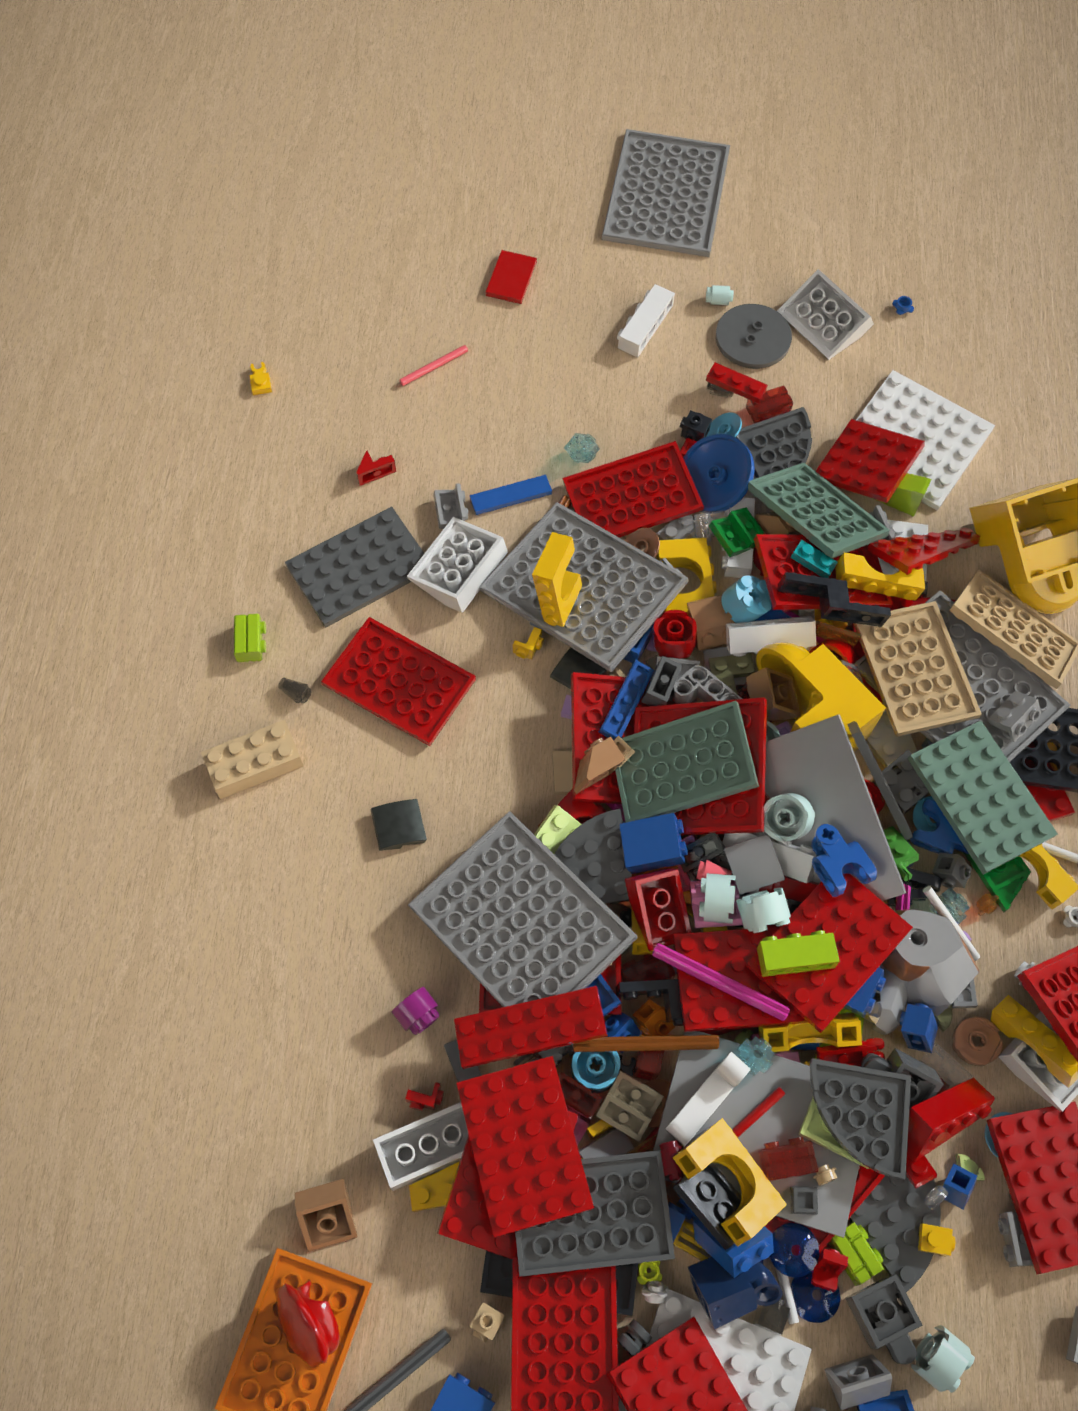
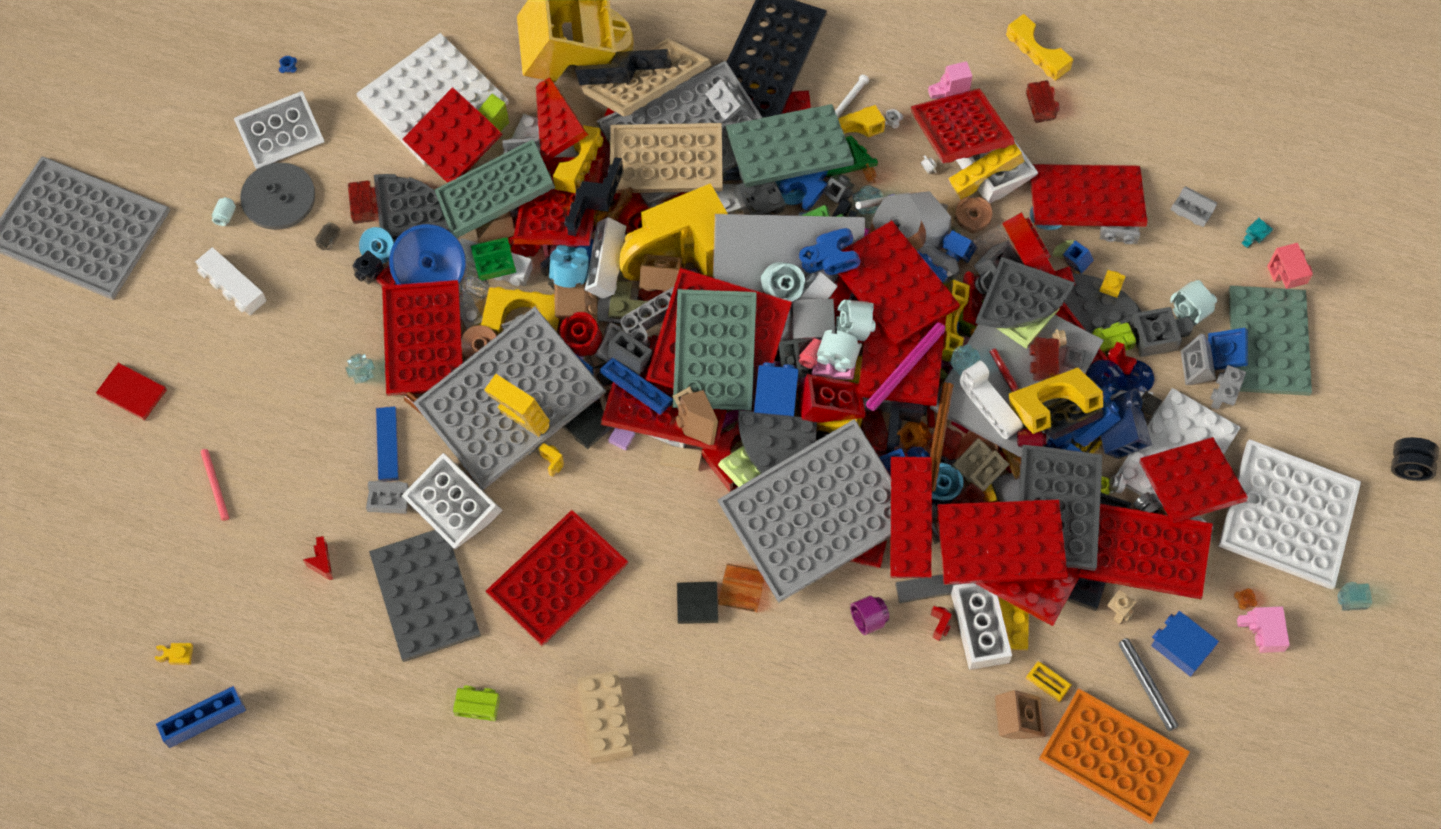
camera: 75 degrees left, 0 degrees up
(197, 411) = (201, 717): none -> blue brick
(295, 690) = (542, 670): clear smoke cone -> none
(307, 1324) = (1106, 733): red piece -> none
(368, 1266) = (1044, 687): none -> yellow tile
(423, 865) = (741, 588): none -> clear orange slope
(736, 382) = (334, 220): red plate -> none
(797, 953) = (899, 302): lime brick -> none
(813, 559) = (549, 202): teal plate -> none
(880, 780) = (763, 209): dark grey tile -> none
(935, 1197) = (1084, 273): clear tile -> none
(1018, 600) = (623, 67): none -> black bracket

